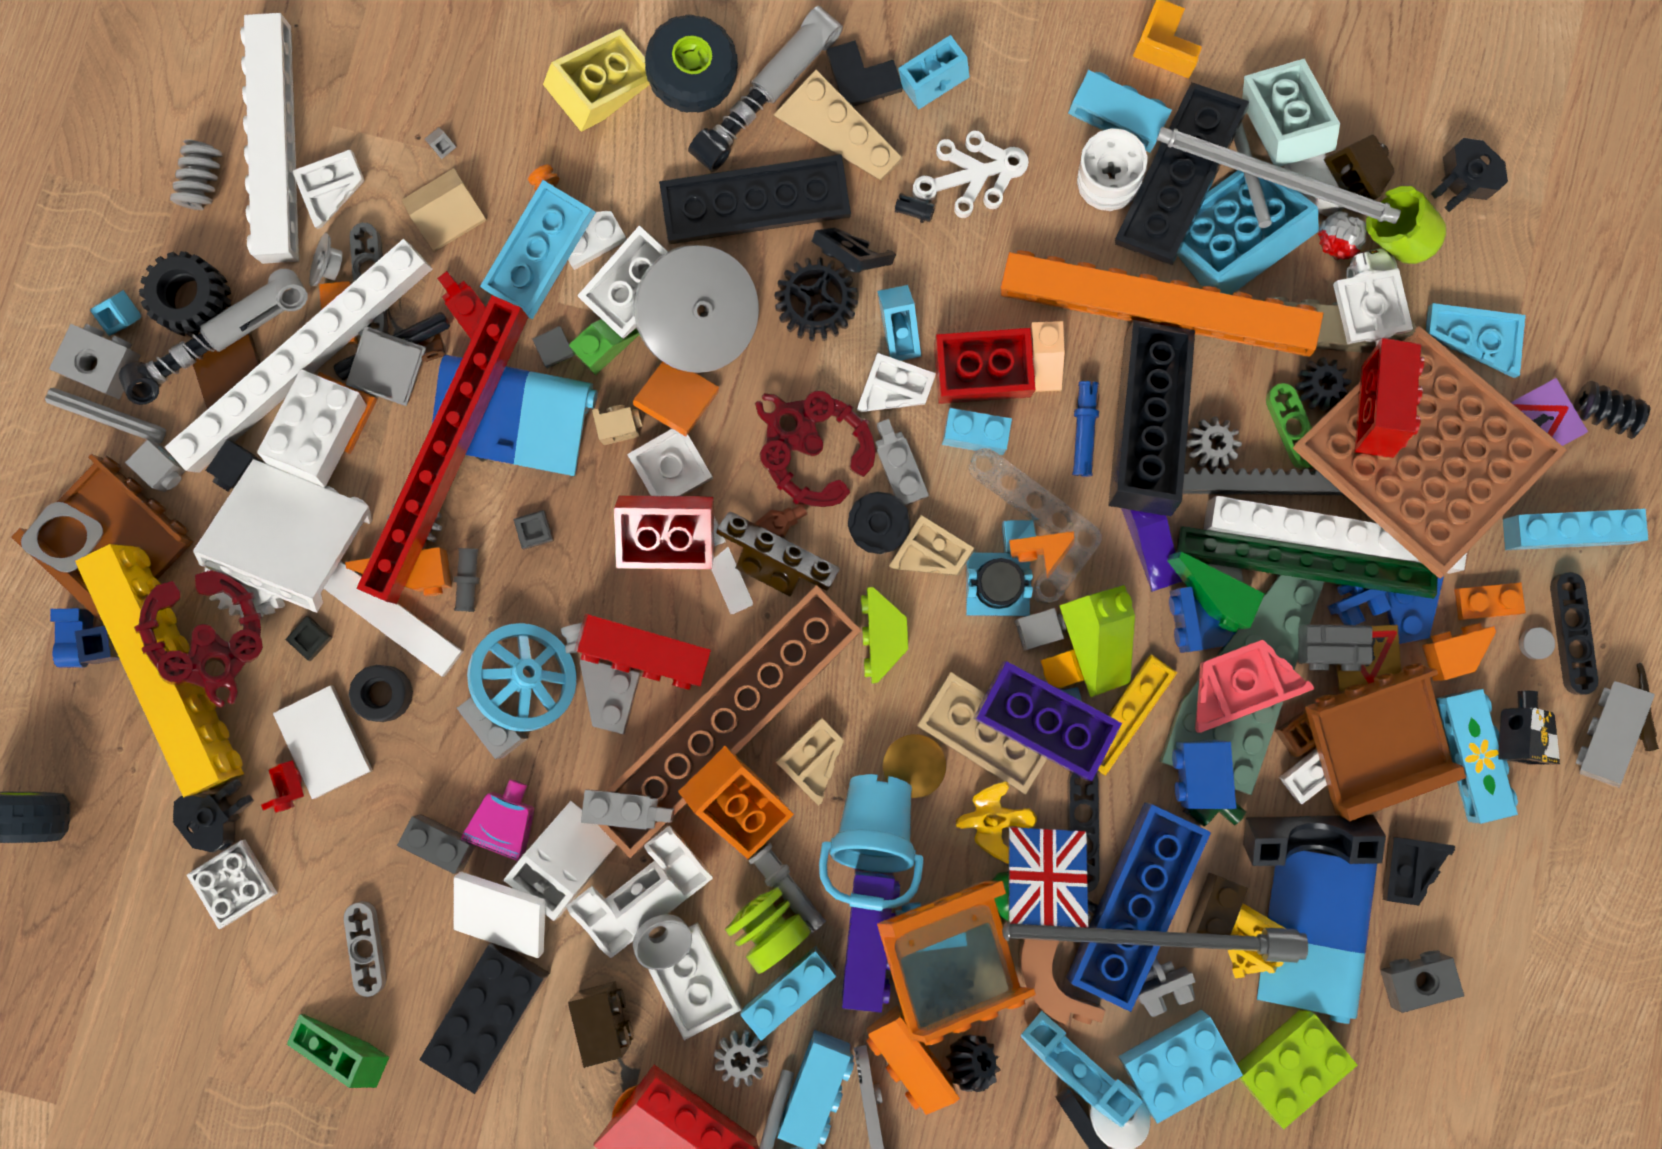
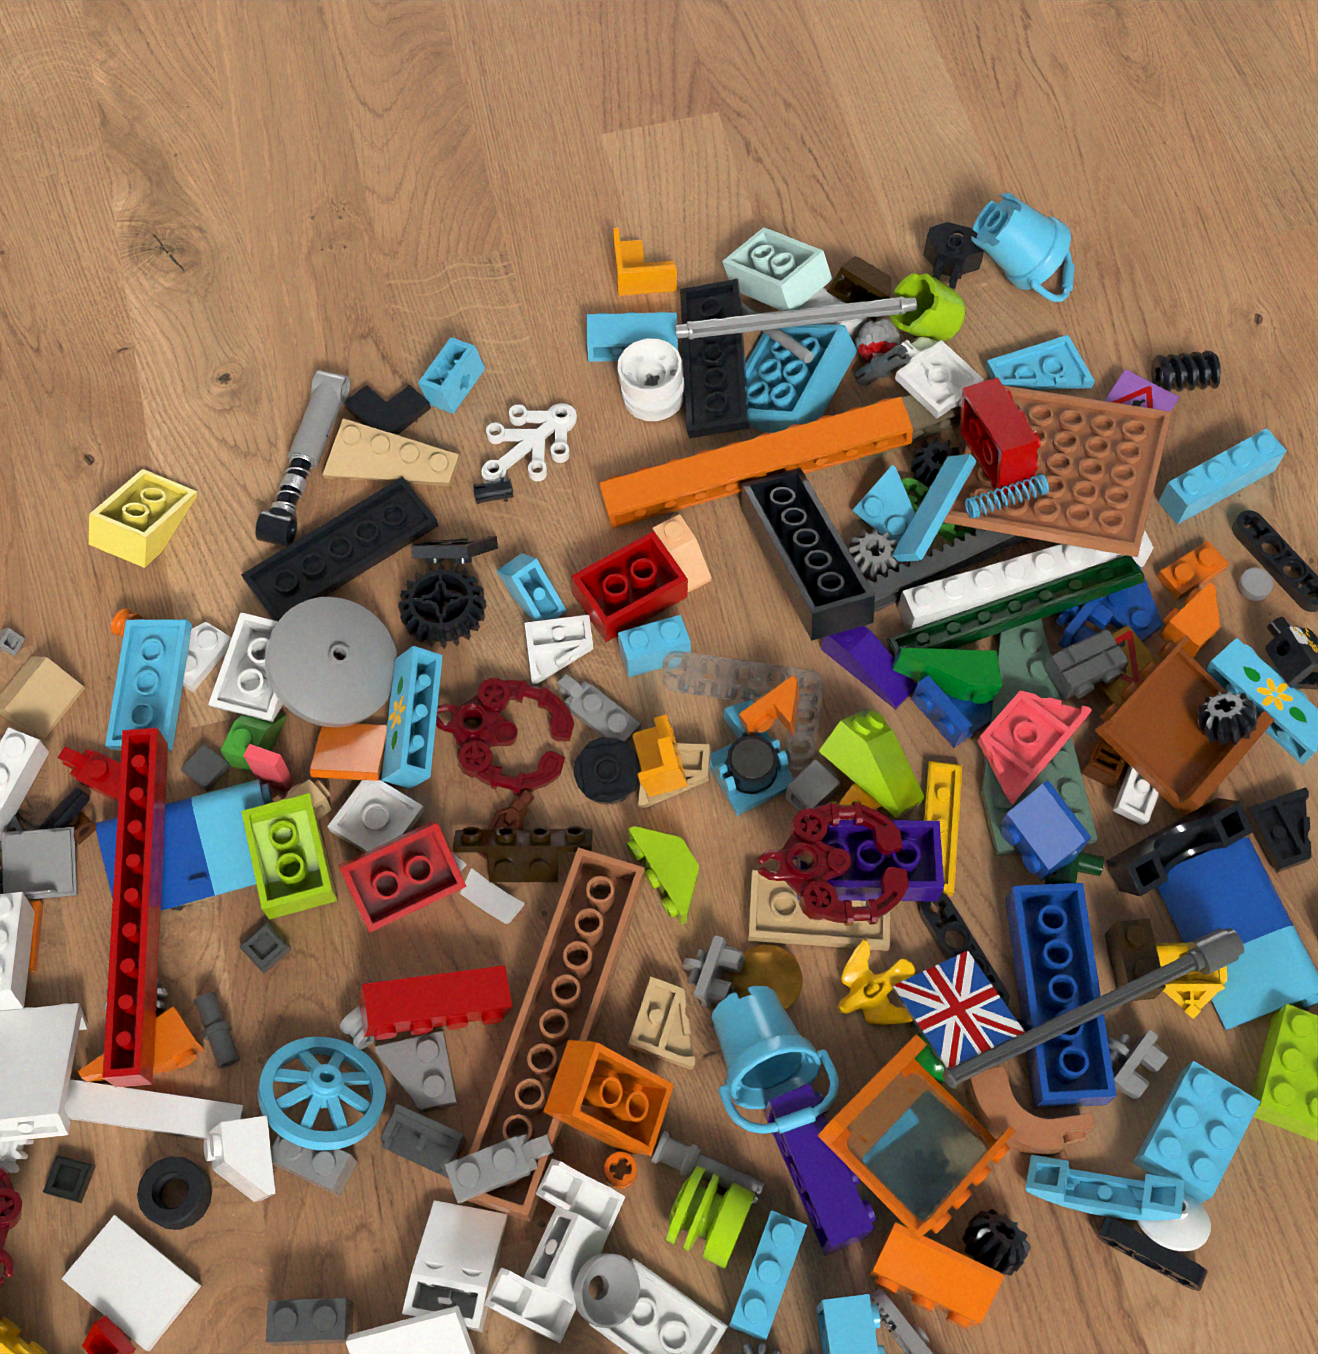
camera: 30 degrees left, 20 degrees down
(440, 696) = (243, 1156): none -> white slope
(502, 822) = (370, 1260): dark pink torso -> none
(583, 466) = (288, 856): none -> lime slope
(584, 751) = (422, 1140): none -> dark grey hinge
(601, 380) = (268, 767): none -> coral tile
(691, 63) = (223, 464): black wheel -> none
(723, 862) = (613, 1160): none -> orange bush
(740, 393) = (412, 718): none -> medium azure brick
(864, 749) = (708, 969): none -> light grey hips
(925, 538) = (659, 758): none -> light orange panel
(1005, 713) = (824, 862): none -> dark red piece
(1085, 428) = (746, 587): blue pin -> none
(1254, 407) = (887, 506): none -> medium azure wing
(1291, 432) = (934, 508): none -> medium azure tile
(1330, 262) = (882, 365): none -> dark grey pin
(1397, 465) = (976, 511): none -> medium azure piece
(1425, 757) = (1227, 717): none -> black gear
(1541, 206) = (1026, 245): none -> medium azure piece

